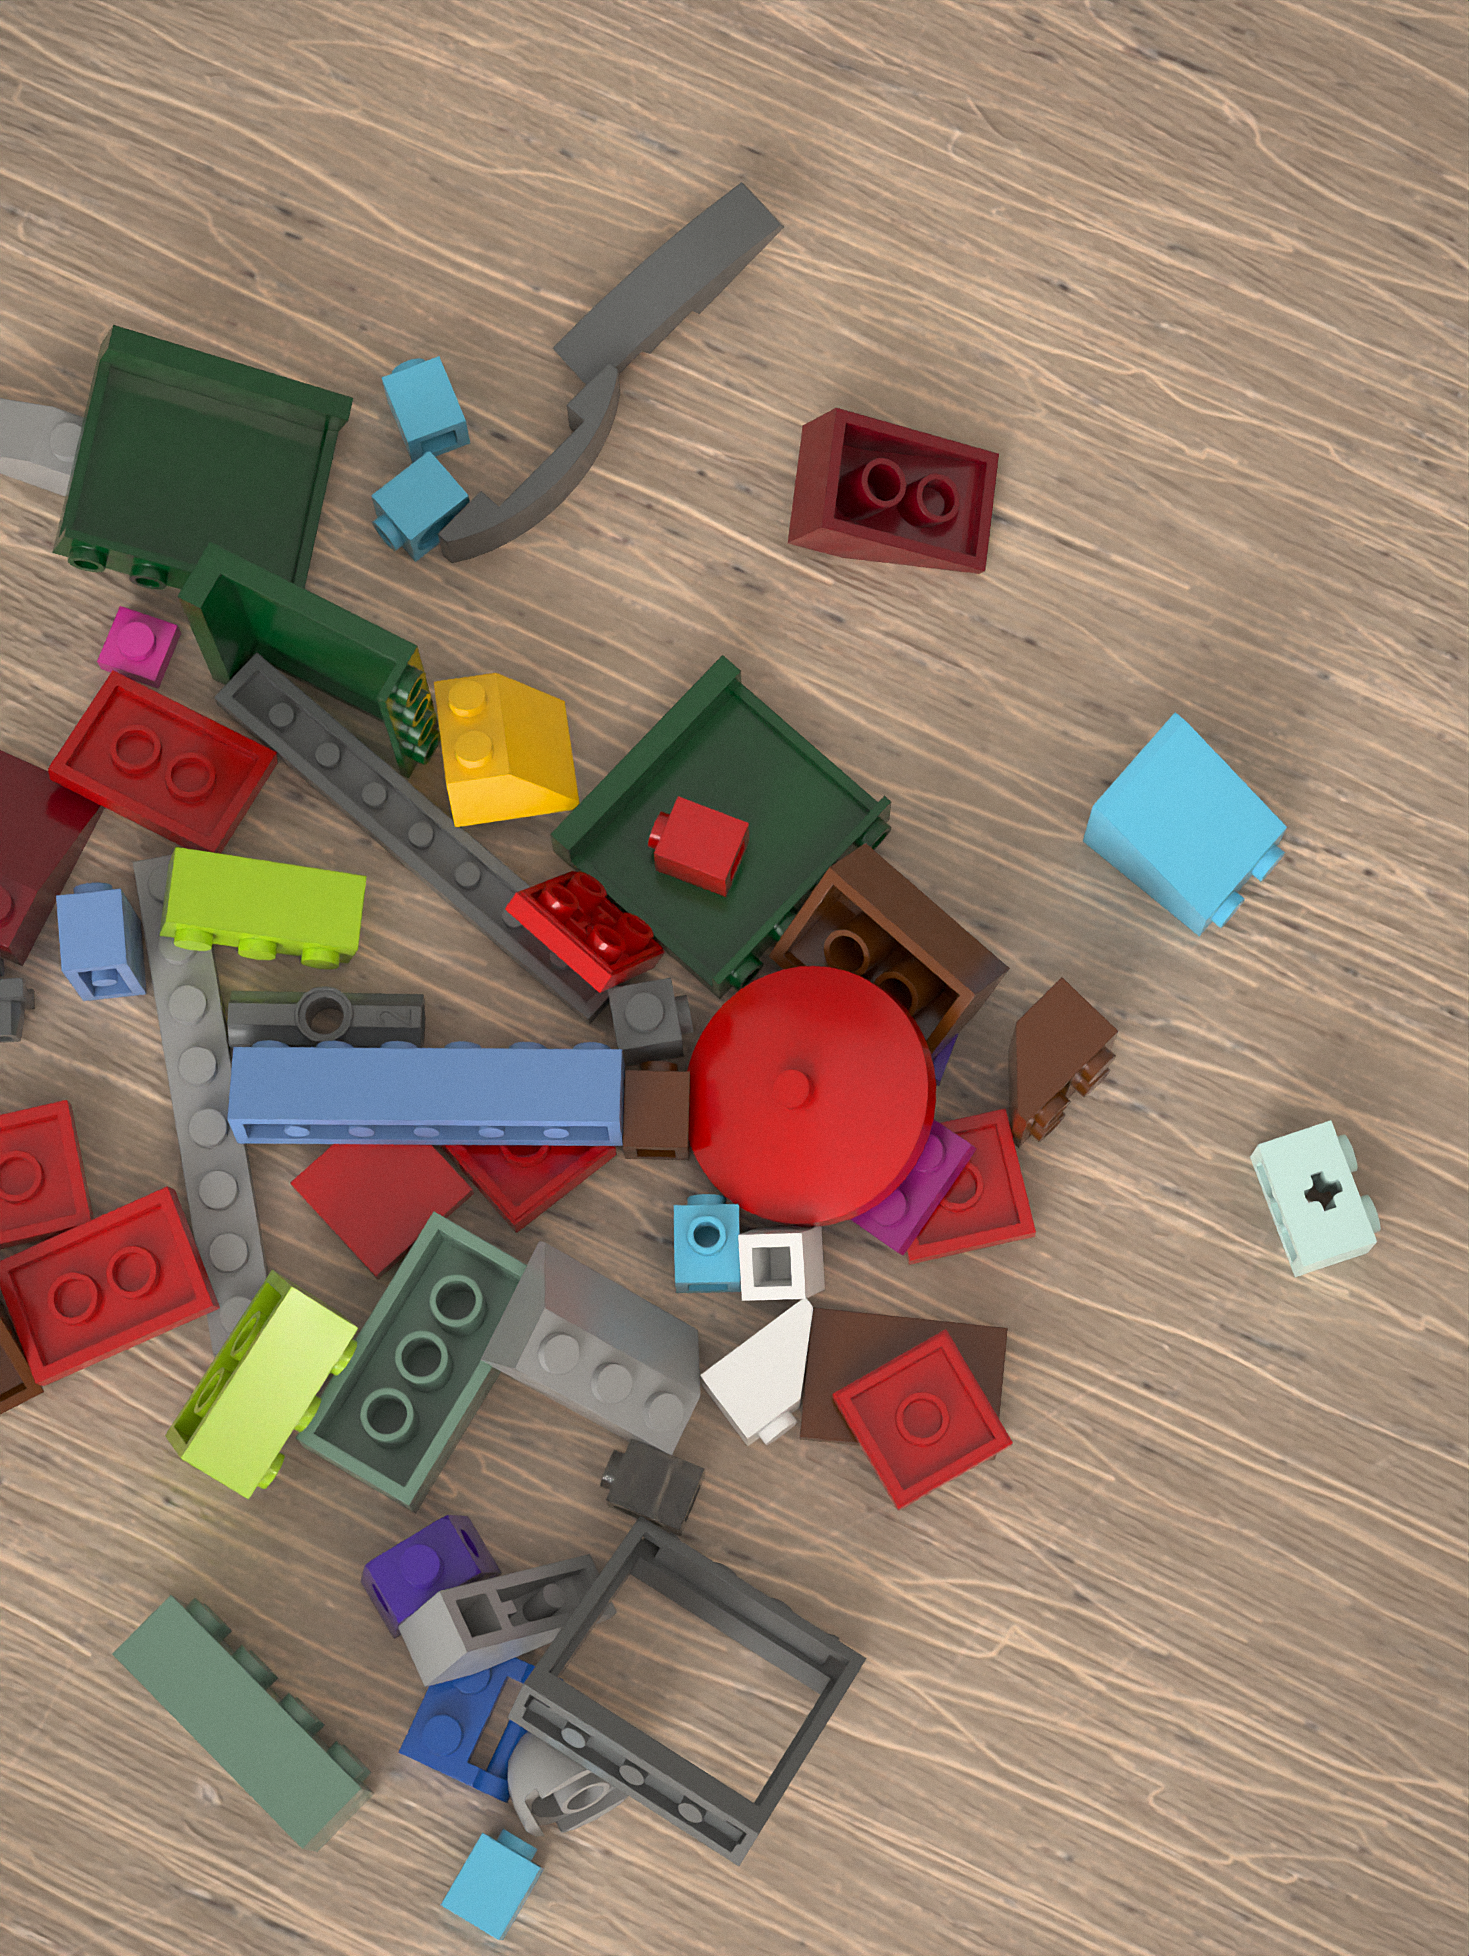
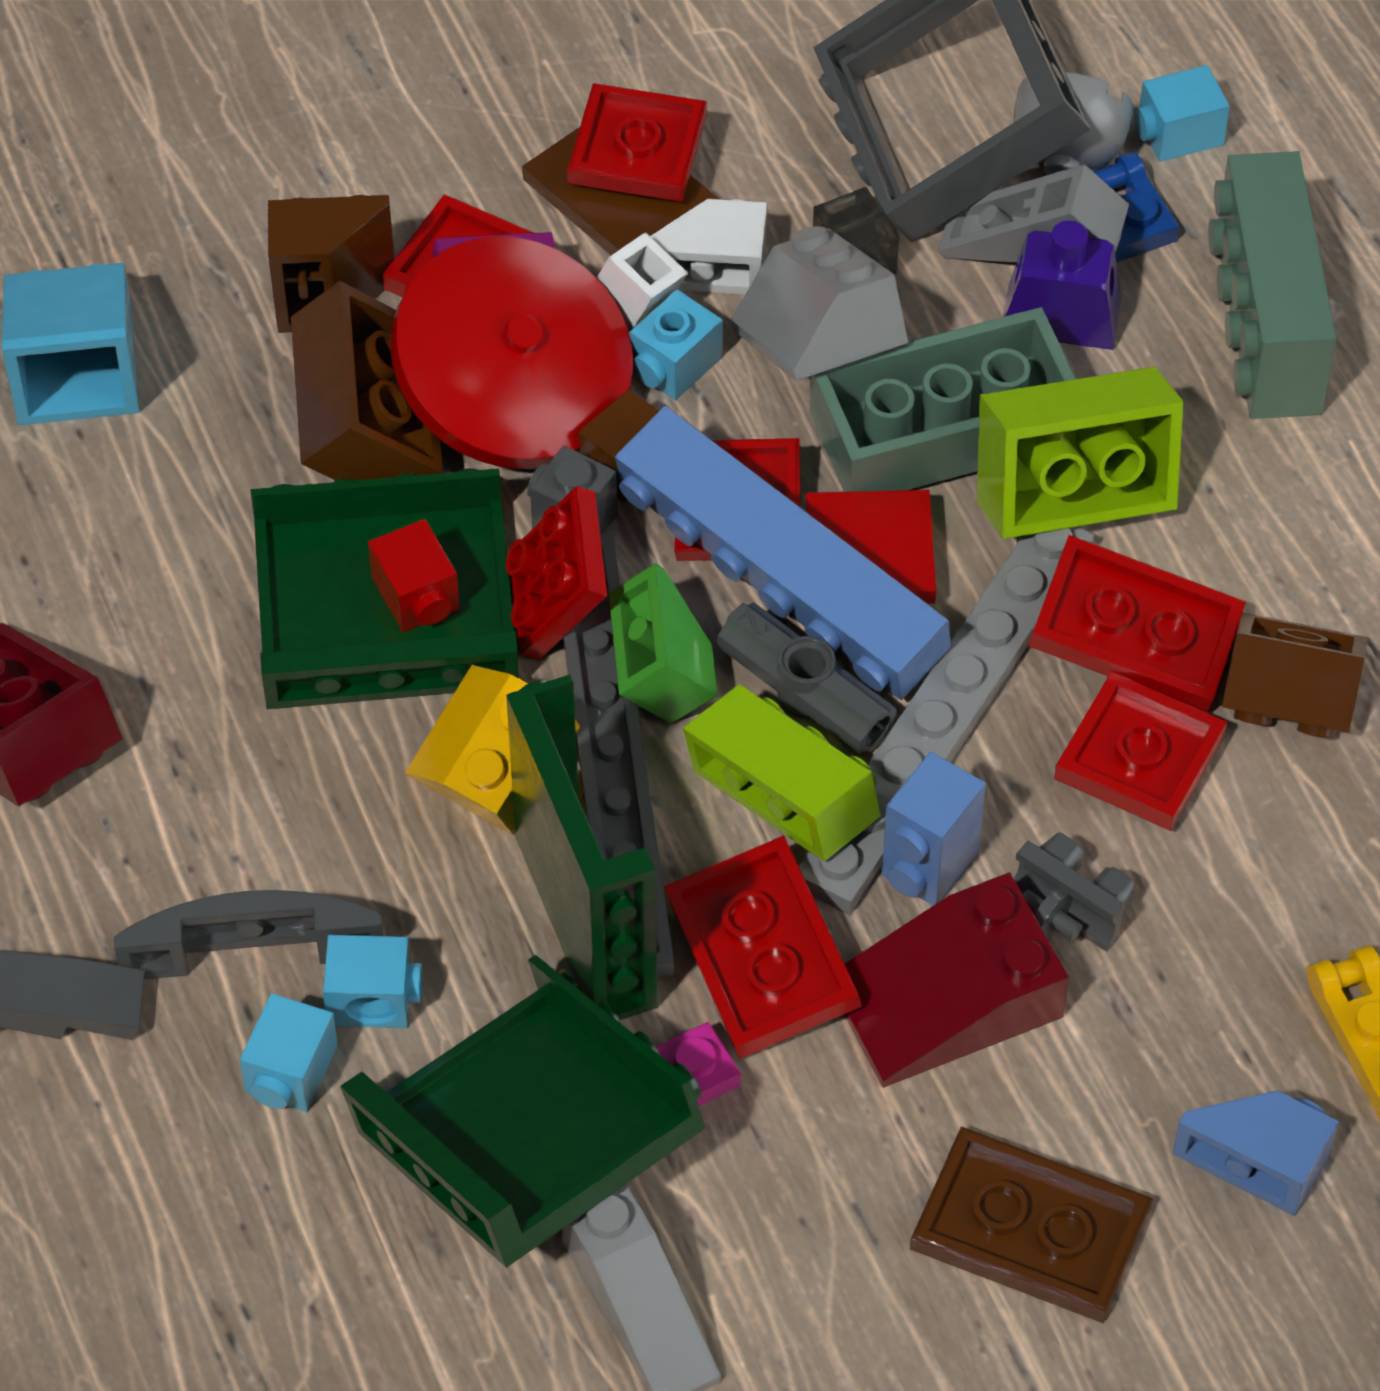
camera: 140 degrees left, 20 degrees down
(449, 934) = (660, 647): none -> bright green slope
(1308, 1233) = (241, 88): light aqua brick -> none

